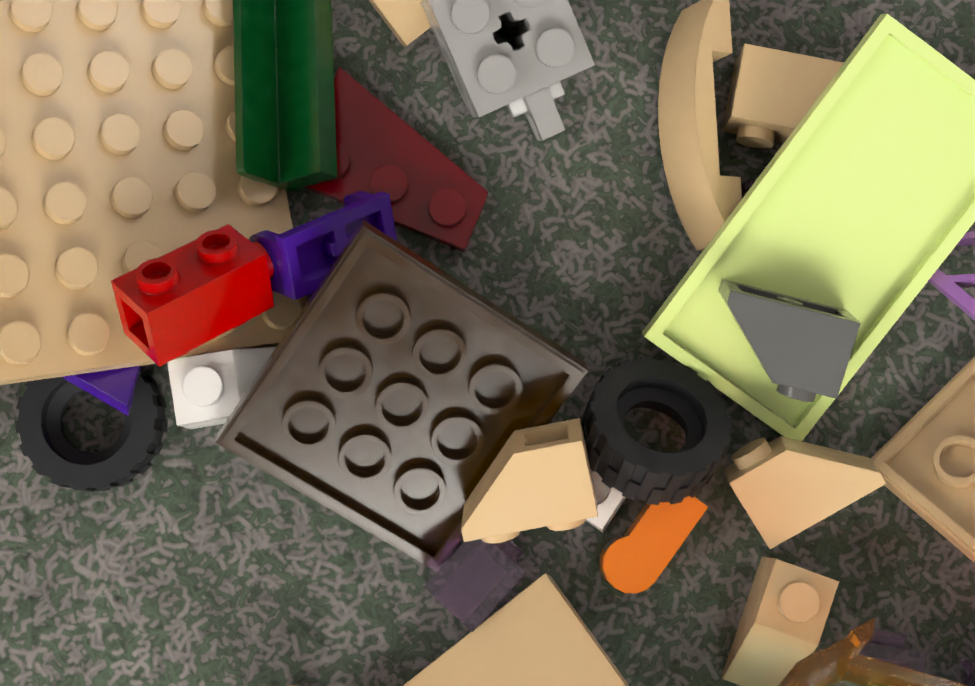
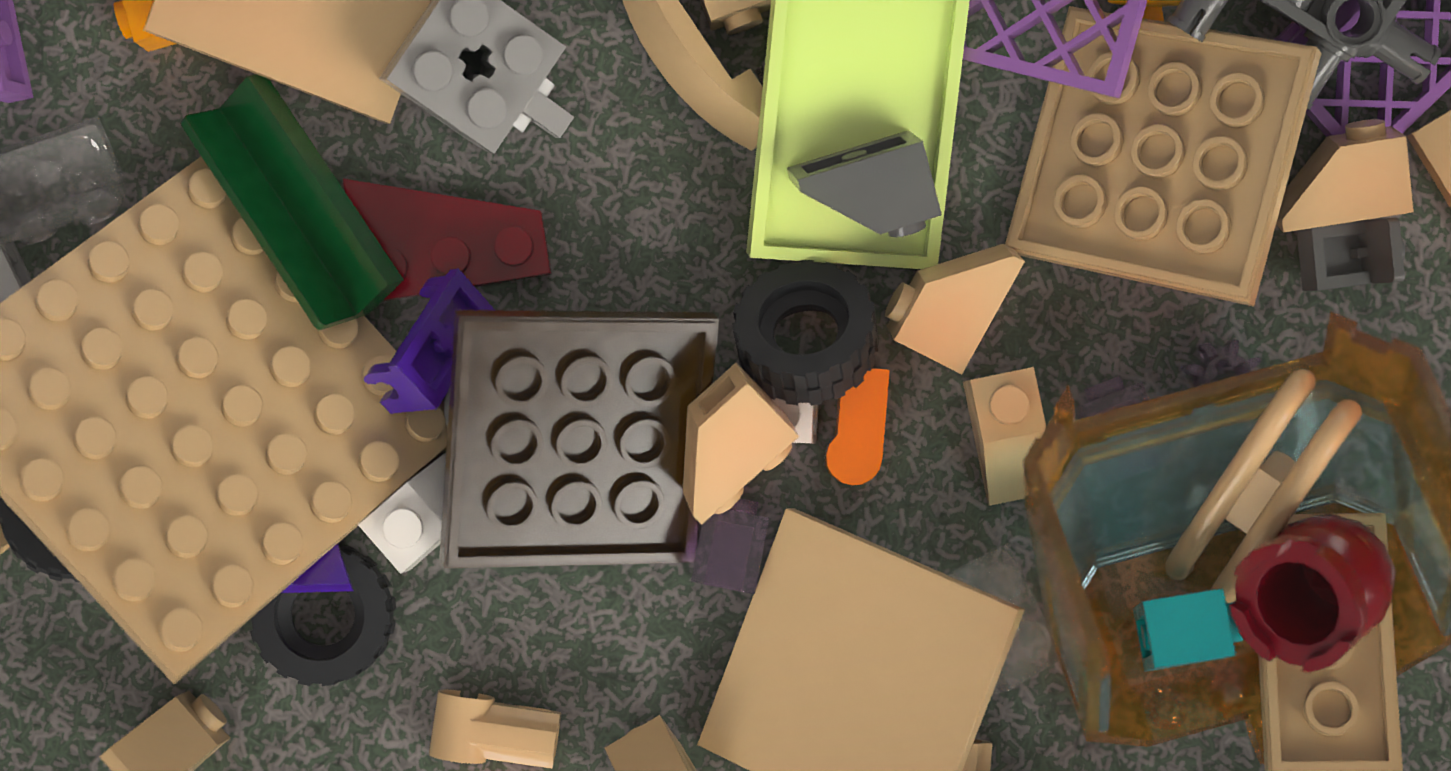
camera: 30 degrees left, 5 degrees up
(165, 604) = (483, 729): none -> tan piece
(194, 293) = (350, 455): red brick -> none

